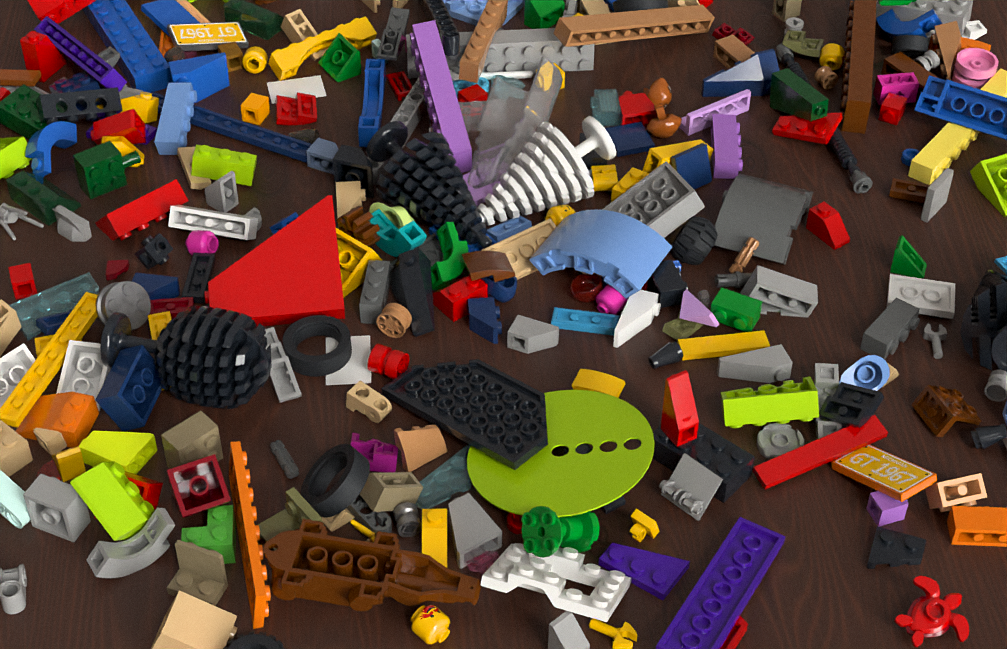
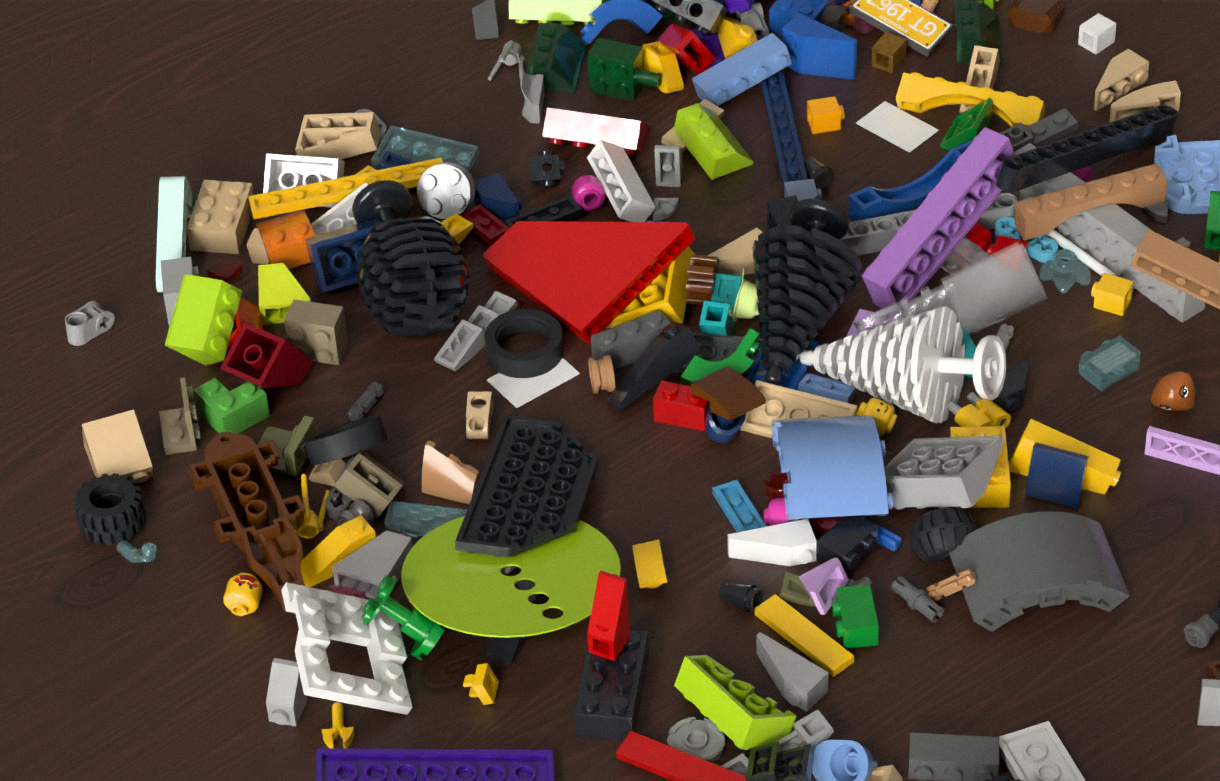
camera: 60 degrees right, 0 degrees up
(22, 281) = (433, 115): red brick -> none
(69, 463) = (242, 273): yellow slope -> none
(115, 268) = (508, 160): dark red tile -> none
(136, 553) = (168, 366): light grey arch -> none
(248, 534) = (250, 416): orange plate -> none
(255, 60) = (897, 66): yellow head -> none
(296, 110) = (858, 142): red slope -> none
(380, 455) = (410, 452): magenta slope -> none
(386, 361) = (542, 398): red wheel -> none
(483, 318) = (669, 435): dark blue slope -> none
(531, 335) = (674, 480): light grey slope -> none
(630, 139) = (1079, 408): dark blue tile -> none
(636, 108) = (1127, 387): red torso -> none
(647, 569) = (434, 714): dark purple wing -> none
(664, 124) = (1126, 419): dark orange piece -> none
(691, 486) = (552, 693): light grey hinge -> none
(725, 142) = (1142, 488): medium lavender brick -> none
(781, 293) = (917, 638): light grey wedge -> none
(827, 225) = (1084, 634): red slope -> none
(907, 260) = (1090, 726): green slope -> none

